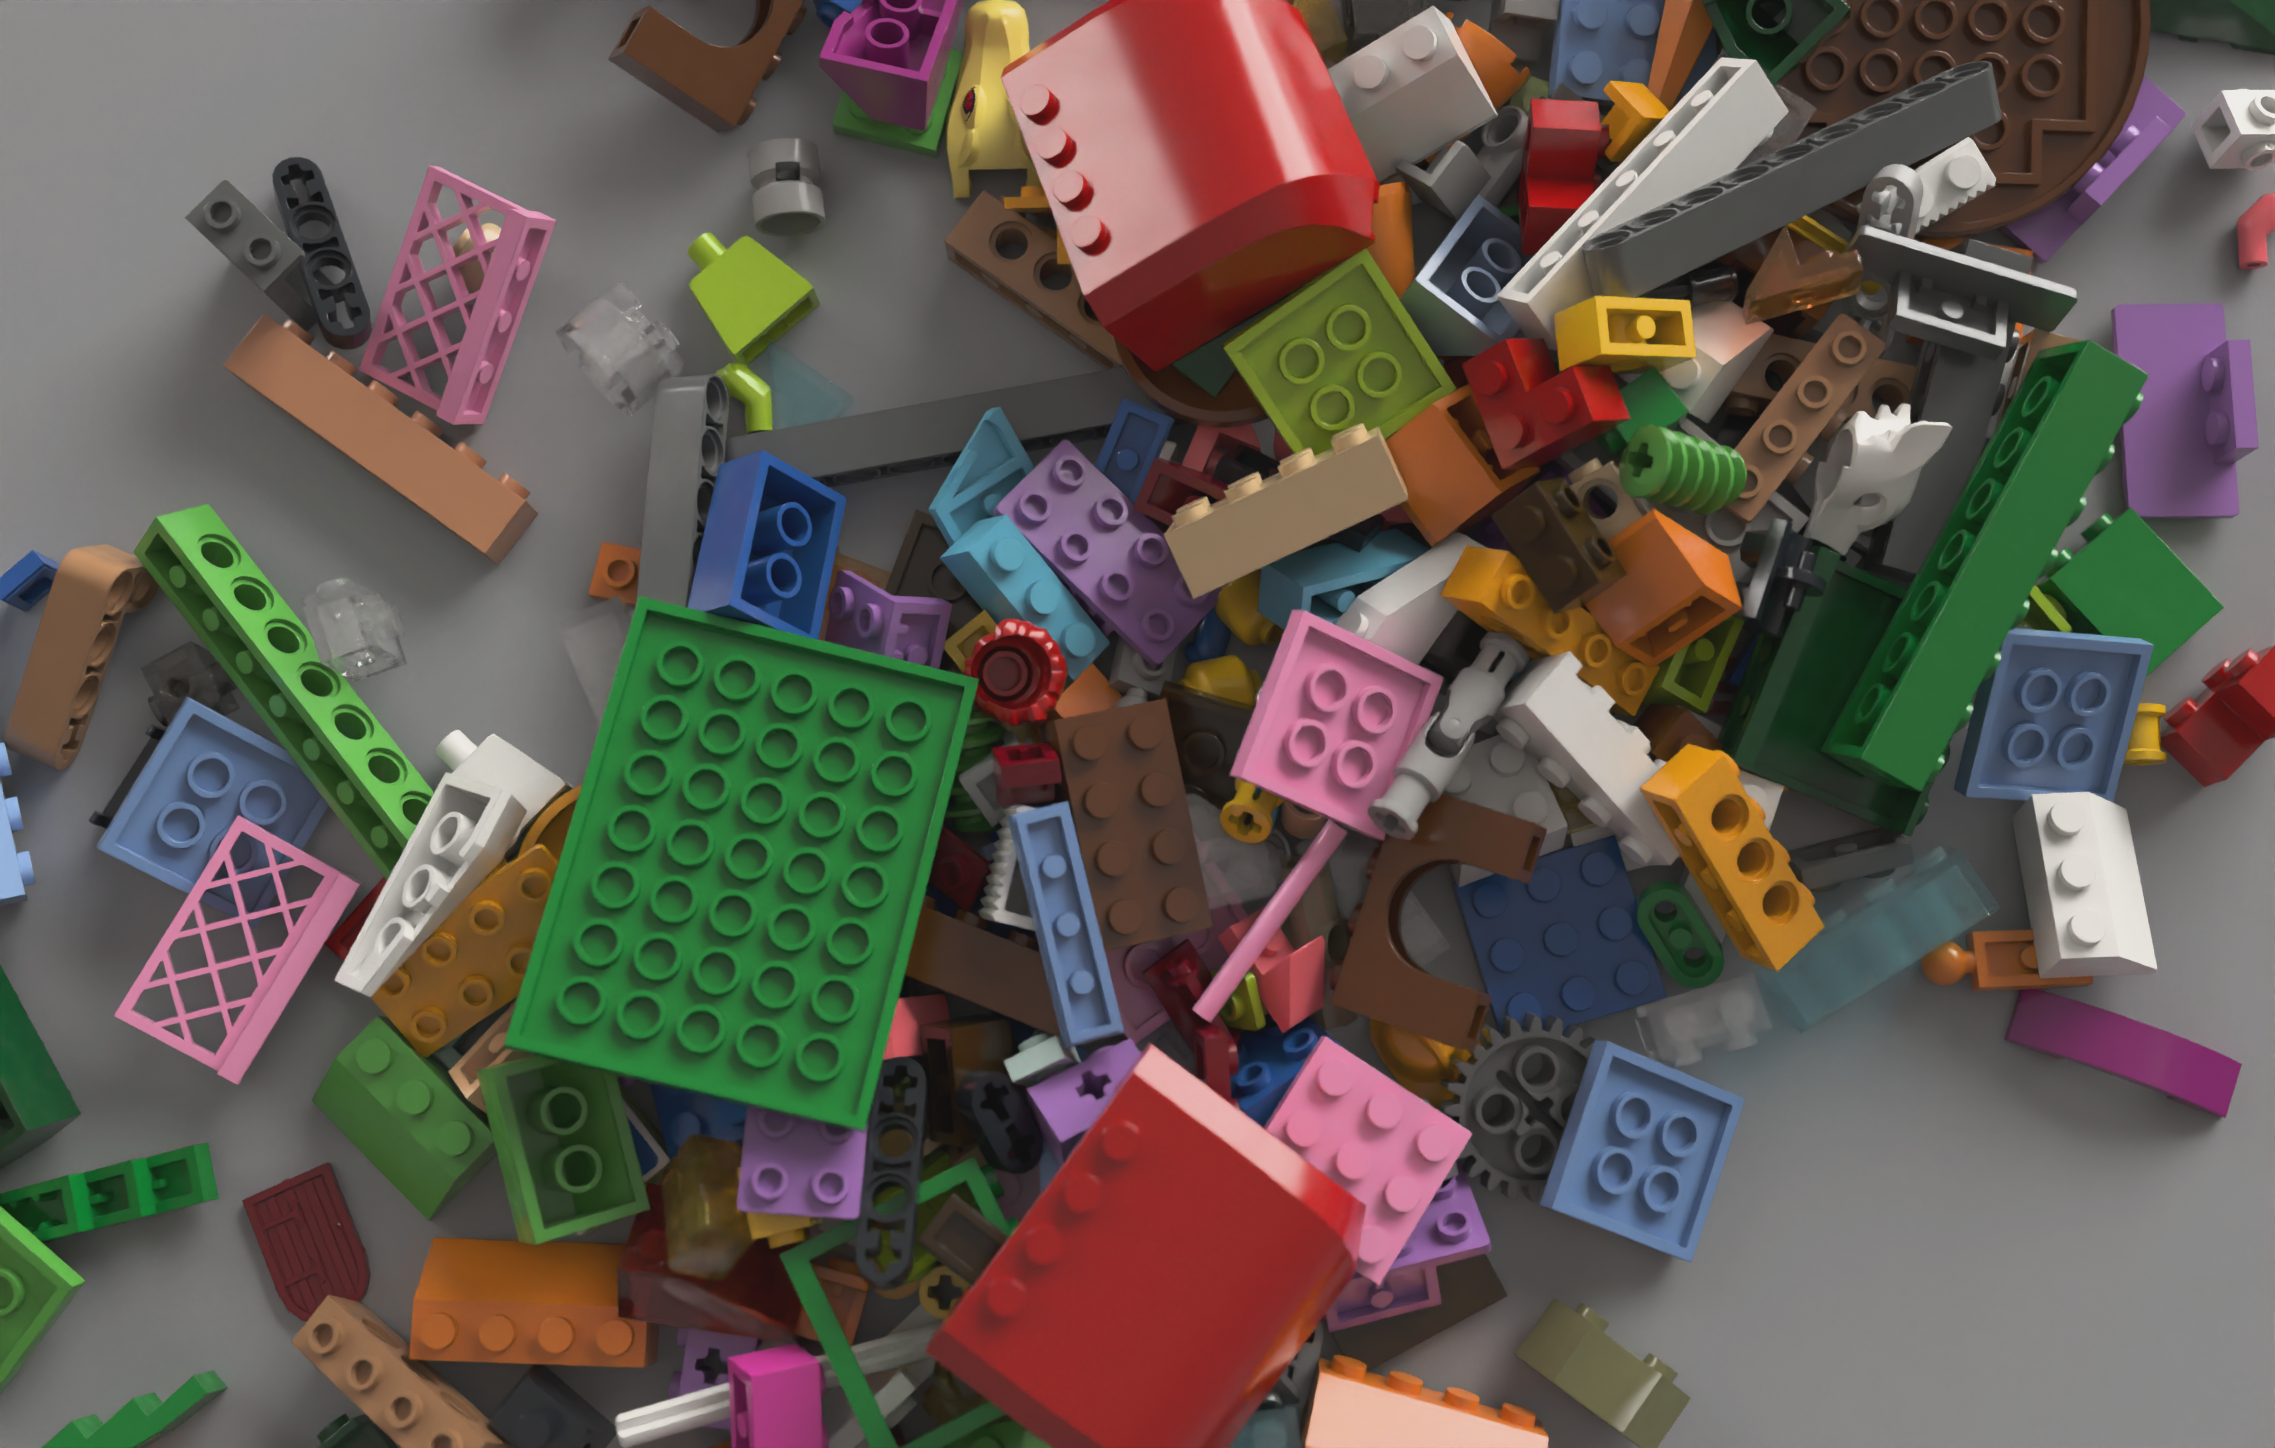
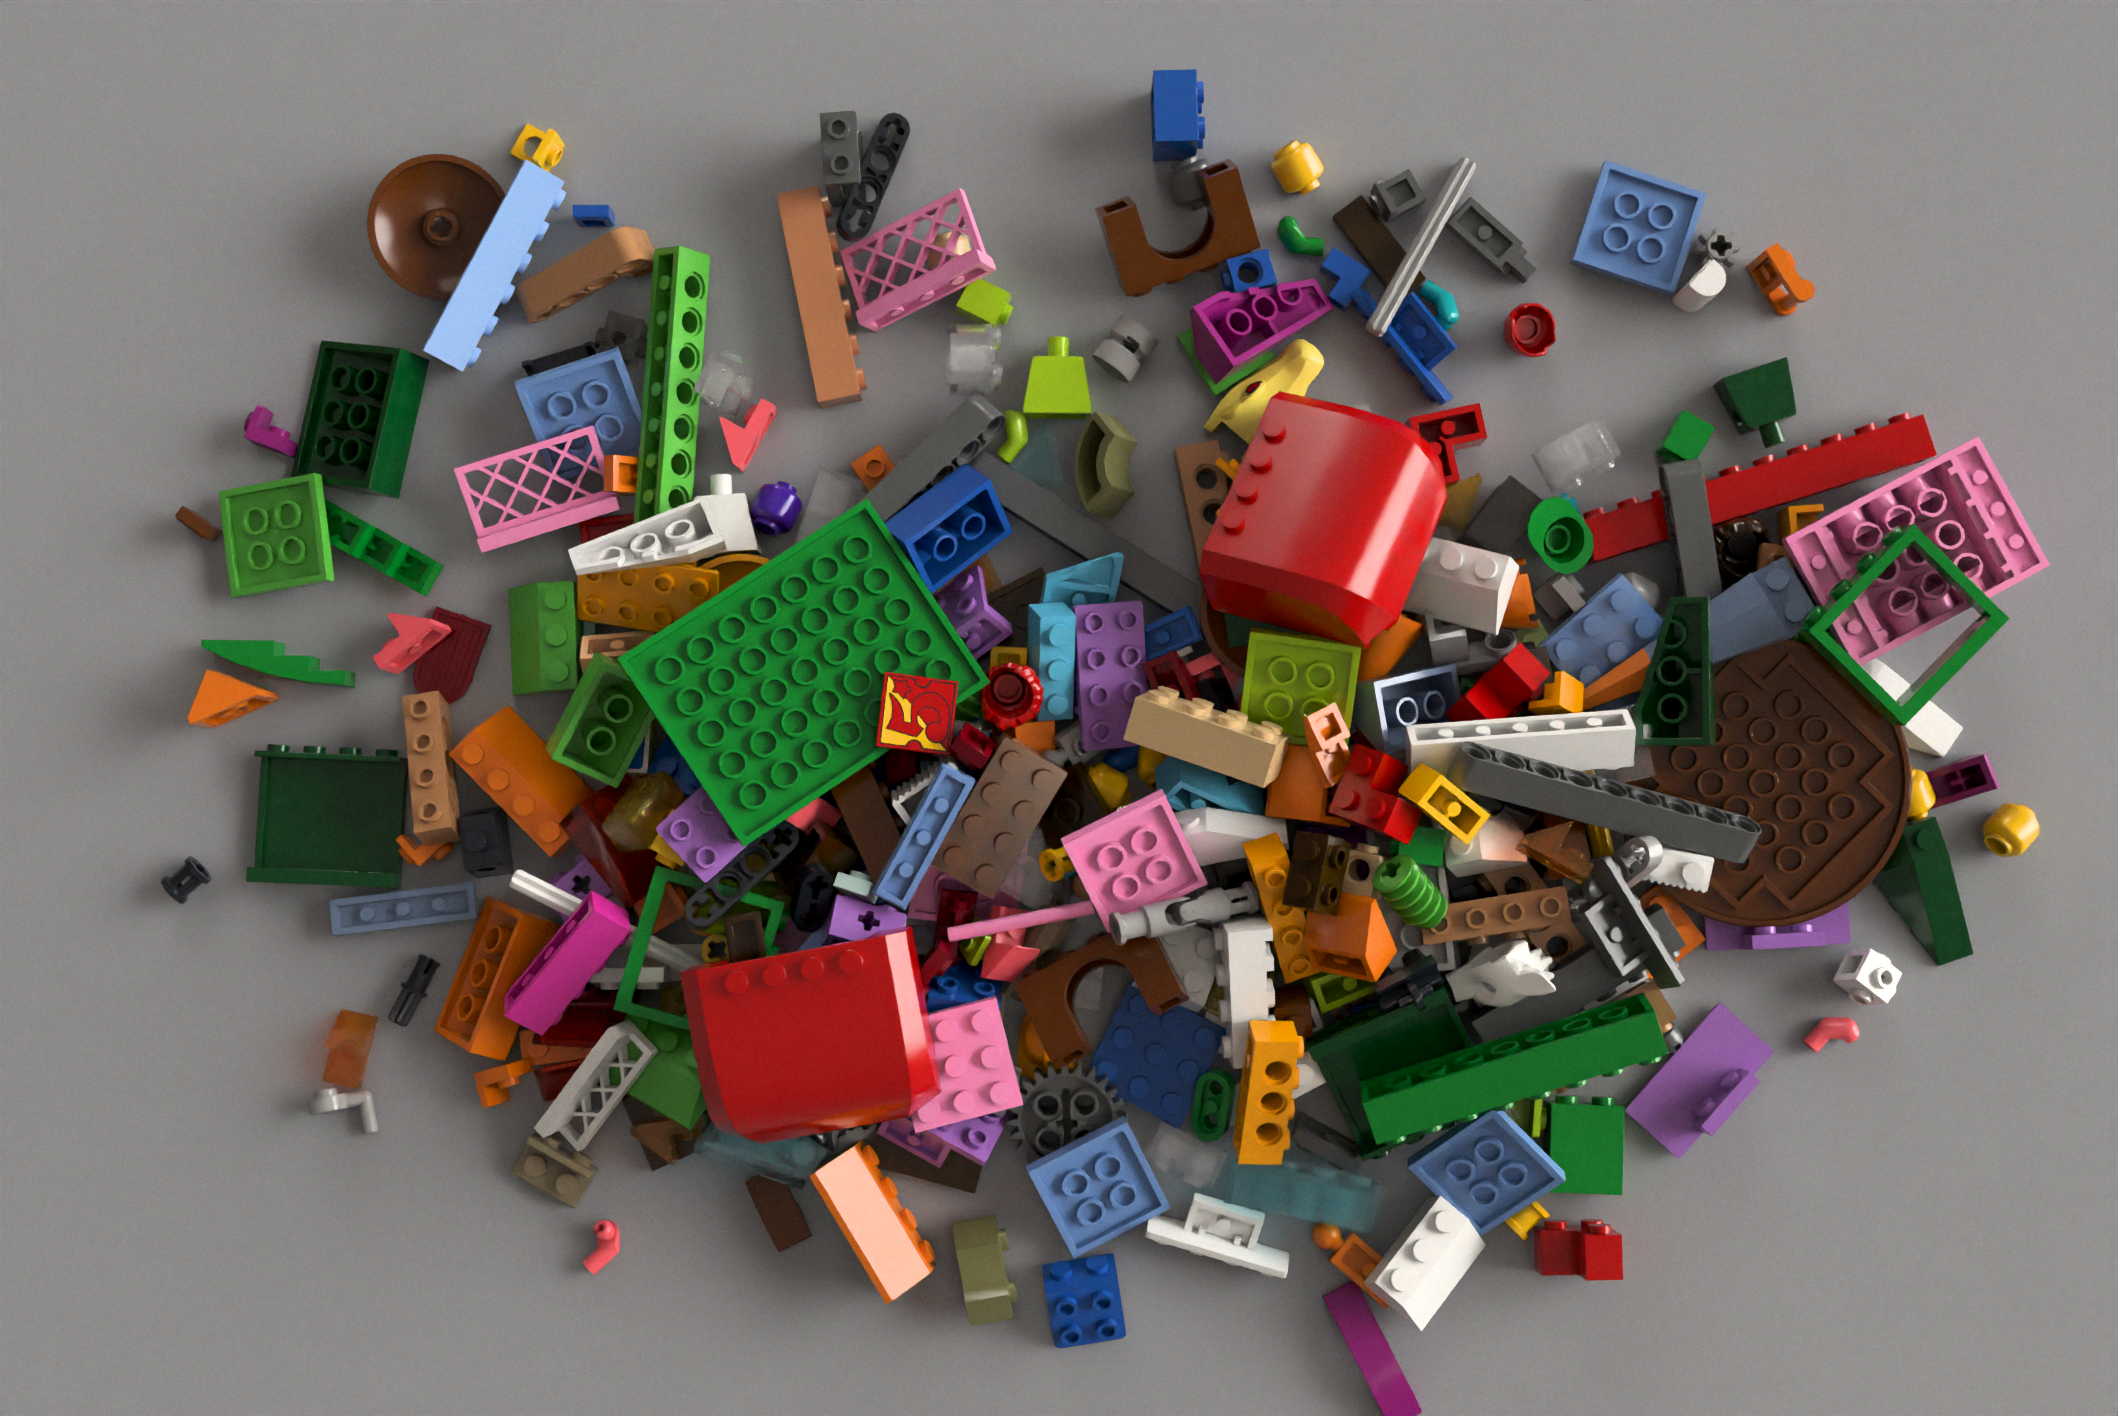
camera: 40 degrees right, 5 degrees up
(248, 1262) = (414, 639): none -> coral slope
(325, 843) = (620, 474): none -> orange bracket
(441, 674) = (744, 442): none -> coral slope
(547, 720) = (776, 508): none -> dark purple head
(577, 275) = (985, 304): none -> lime brick
(880, 333) = (1103, 465): none -> olive brick
(926, 789) = (916, 714): none -> tile
(1417, 388) = (1325, 739): none -> orange slope
(1749, 1299) = (1084, 1301): none -> blue bracket
(1828, 1072) = (1222, 1233): none -> white bracket

